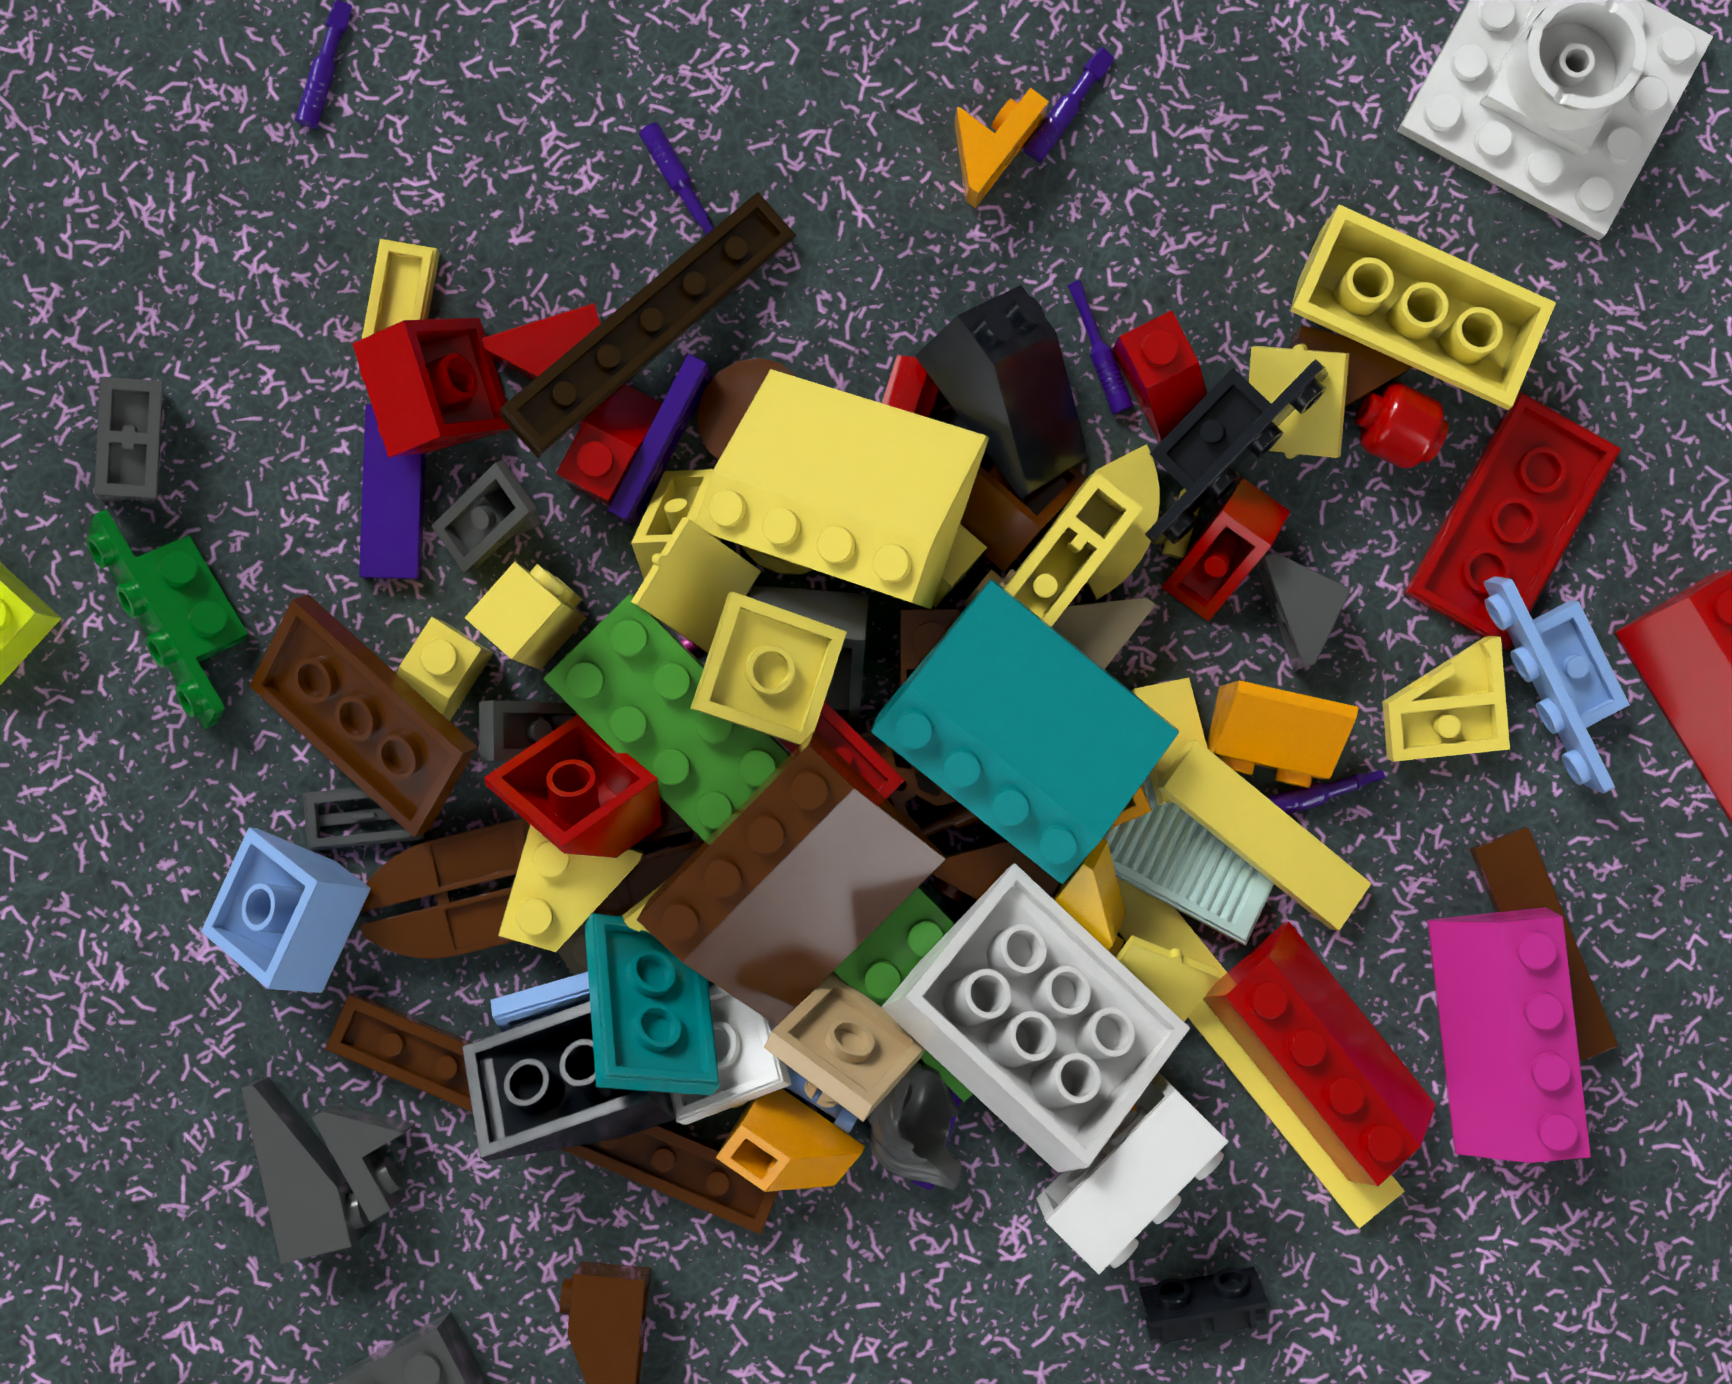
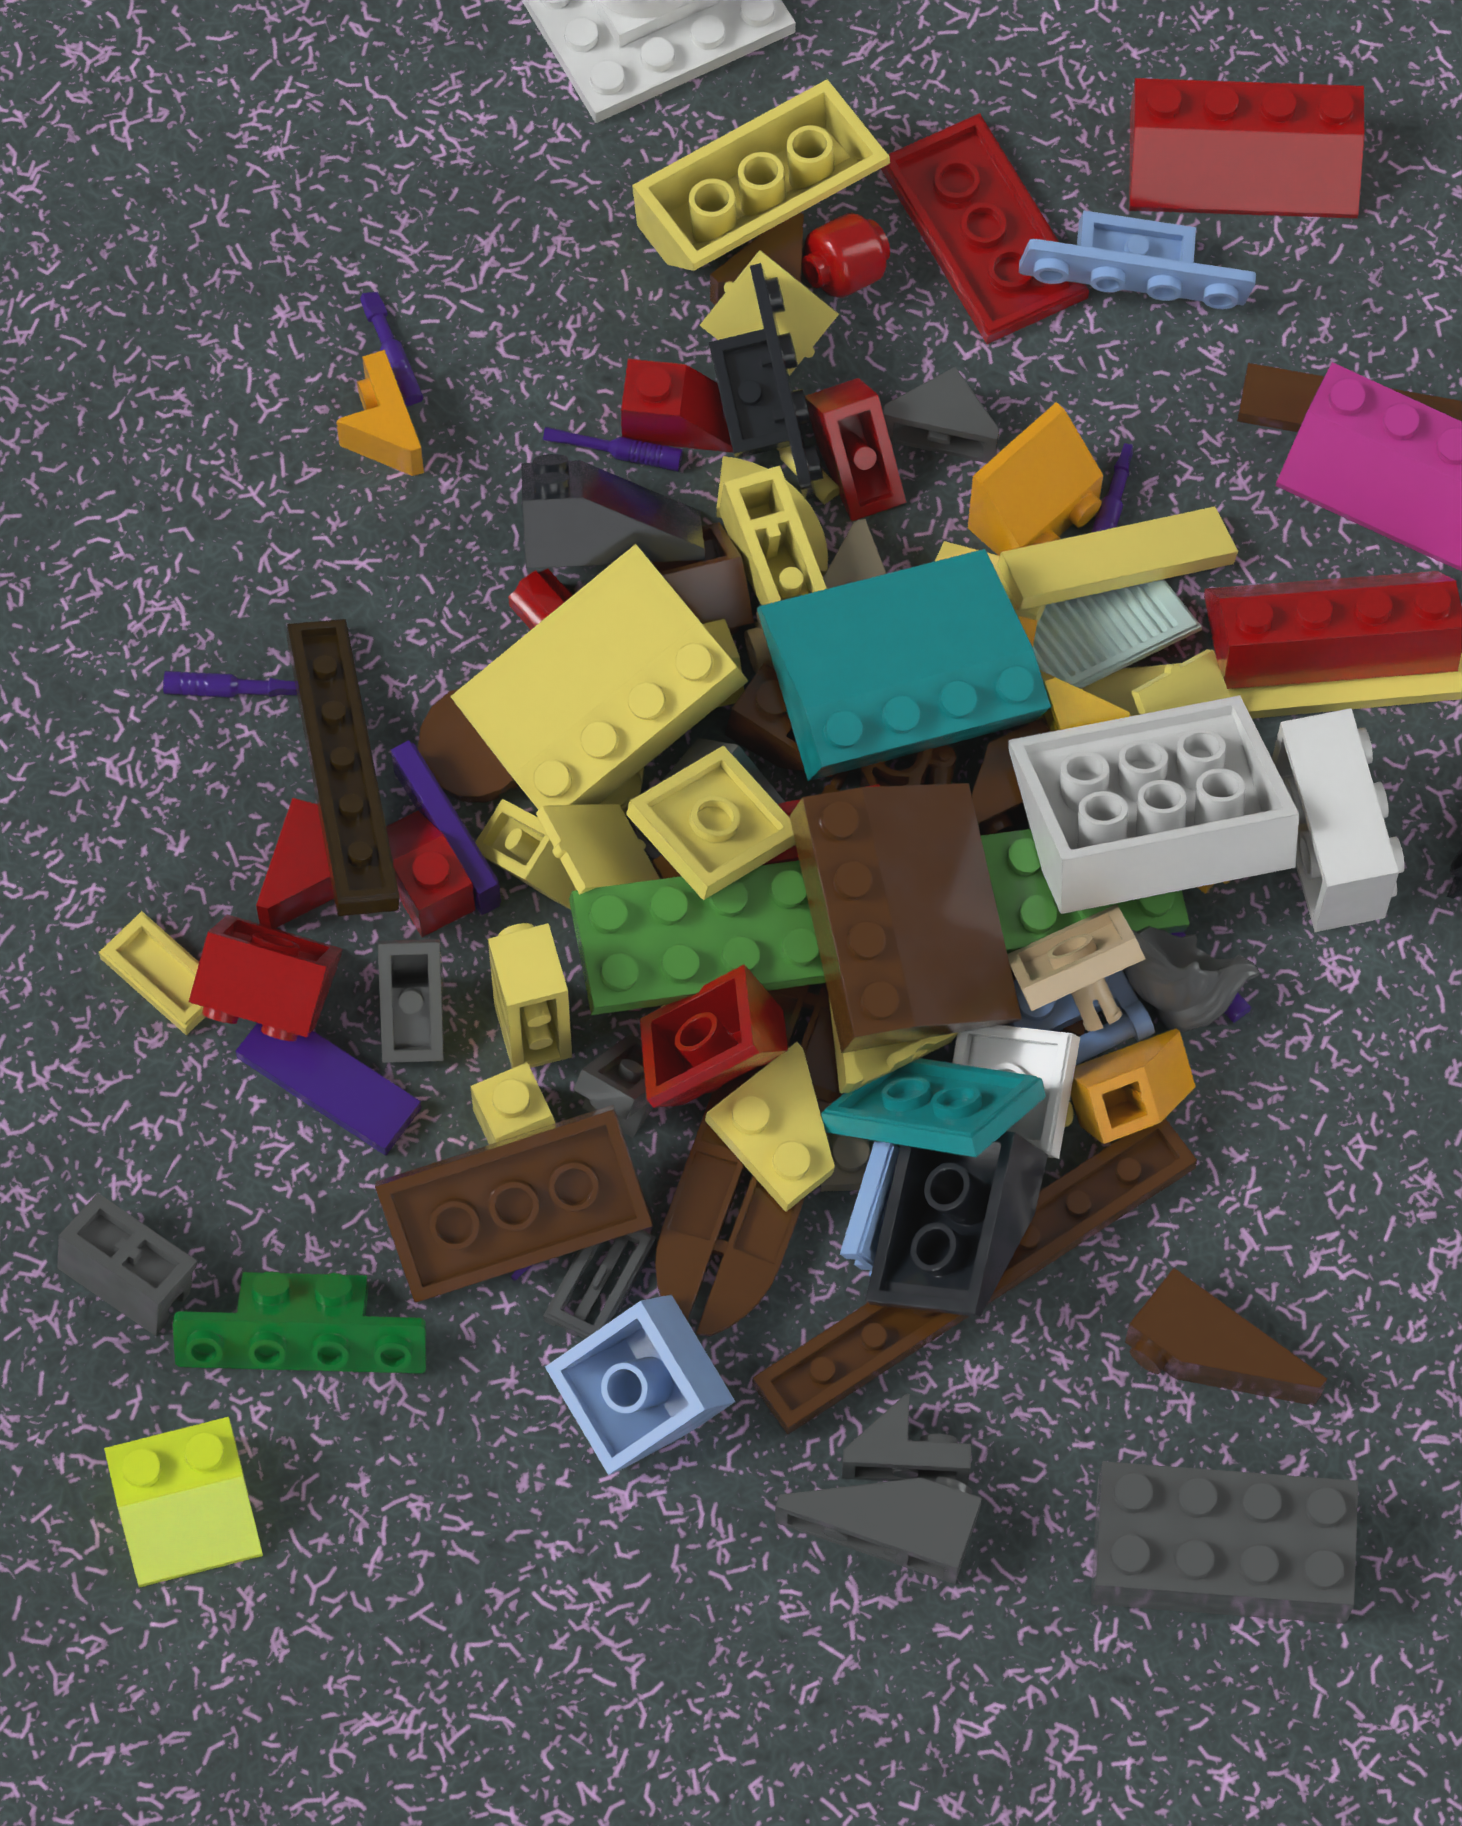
camera: 60 degrees left, 20 degrees down
(1451, 708) = (1107, 359): light yellow wing -> none

